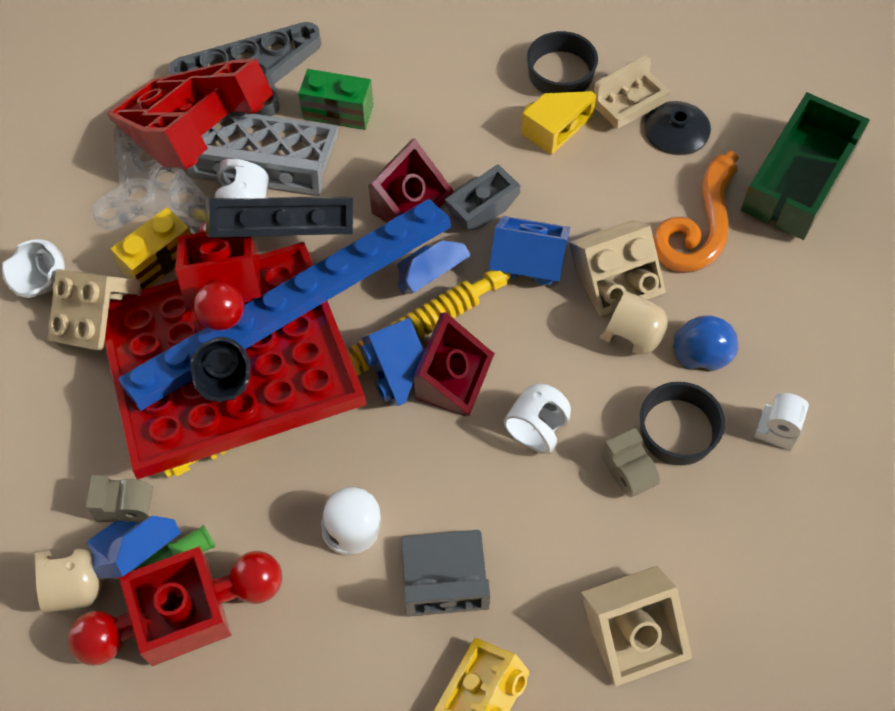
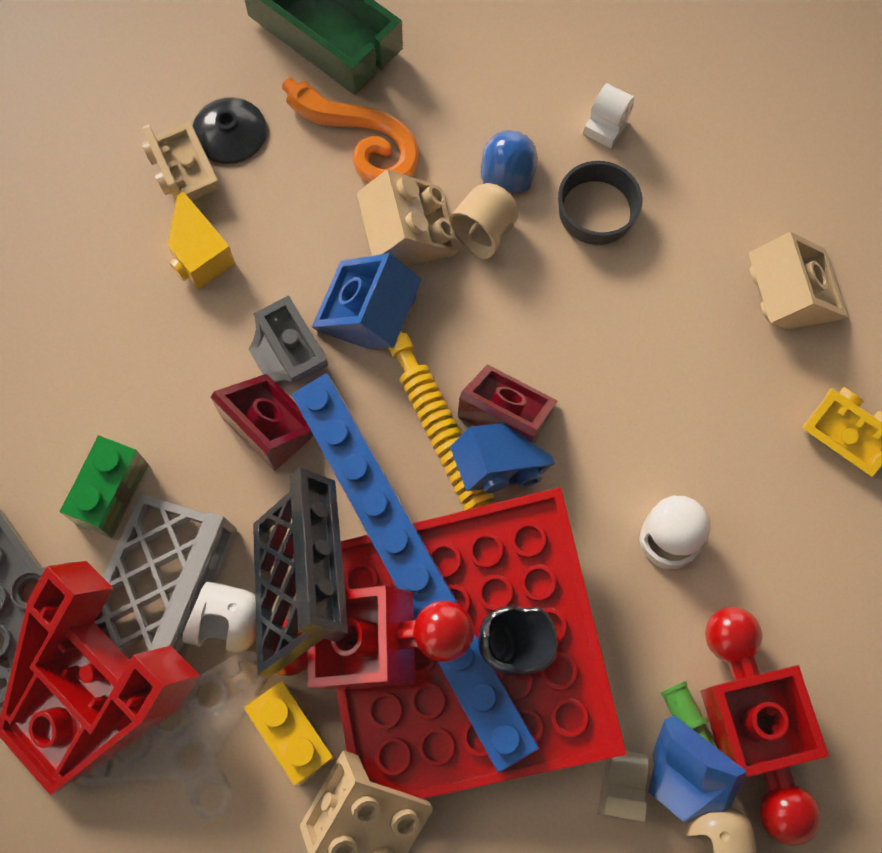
camera: 85 degrees left, 10 degrees up
(429, 264) = (376, 409): slope -> none
(445, 573) = (739, 447): dark grey bracket -> none
(537, 402) = (576, 334): white helmet -> none
(562, 42) = (103, 195): black tyre -> none
(630, 463) = (636, 256): dark tan leg -> none

